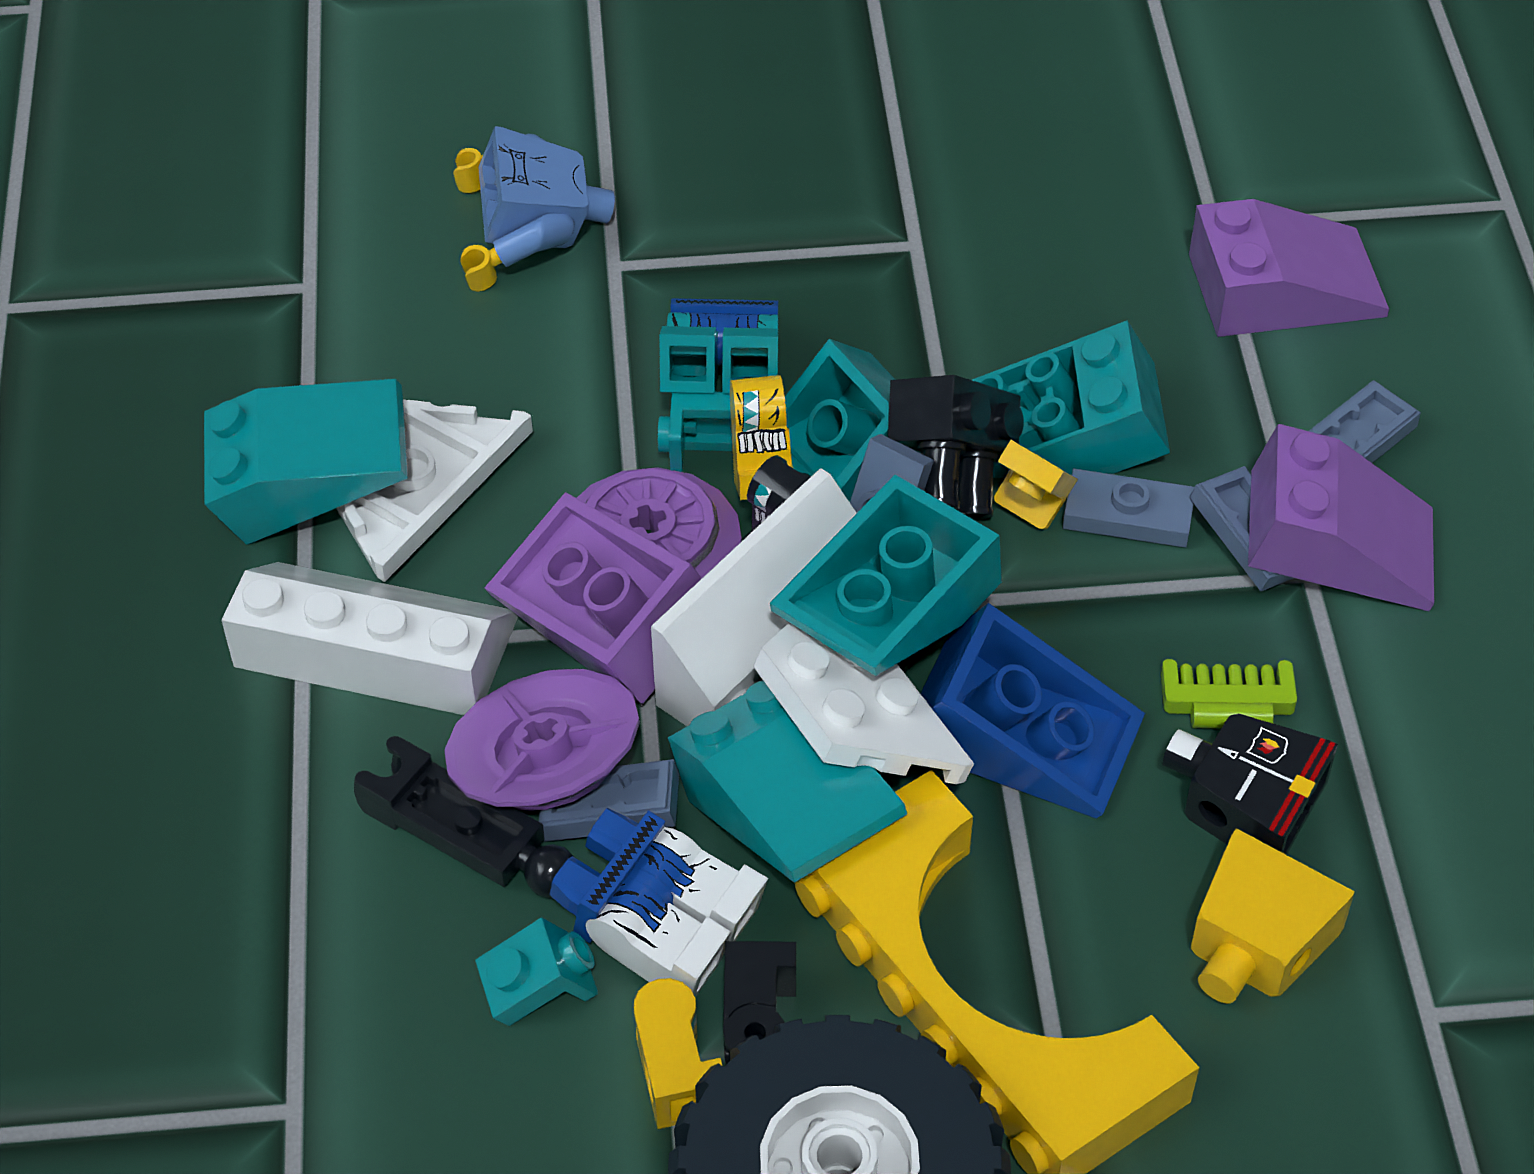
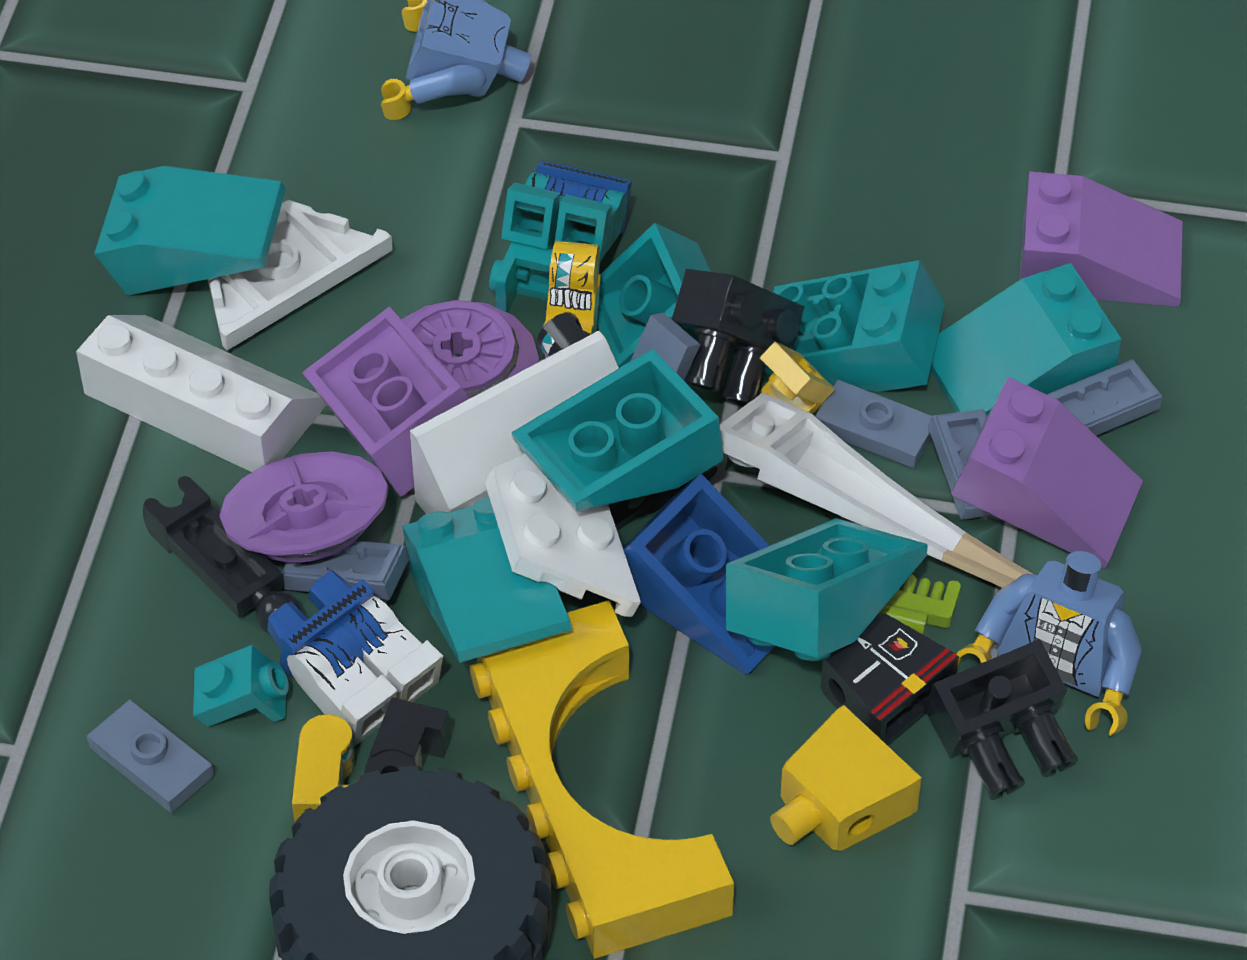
camera: 15 degrees right, 0 degrees up
(456, 1078) = (150, 756): none -> sand blue plate
(1103, 573) = (818, 466): none -> white plate
(1159, 702) = (818, 586): none -> teal slope
(1257, 374) = (1035, 331): none -> teal slope
(1403, 774) = (995, 699): none -> black brick
(1435, 686) = (1078, 624): none -> medium blue torso

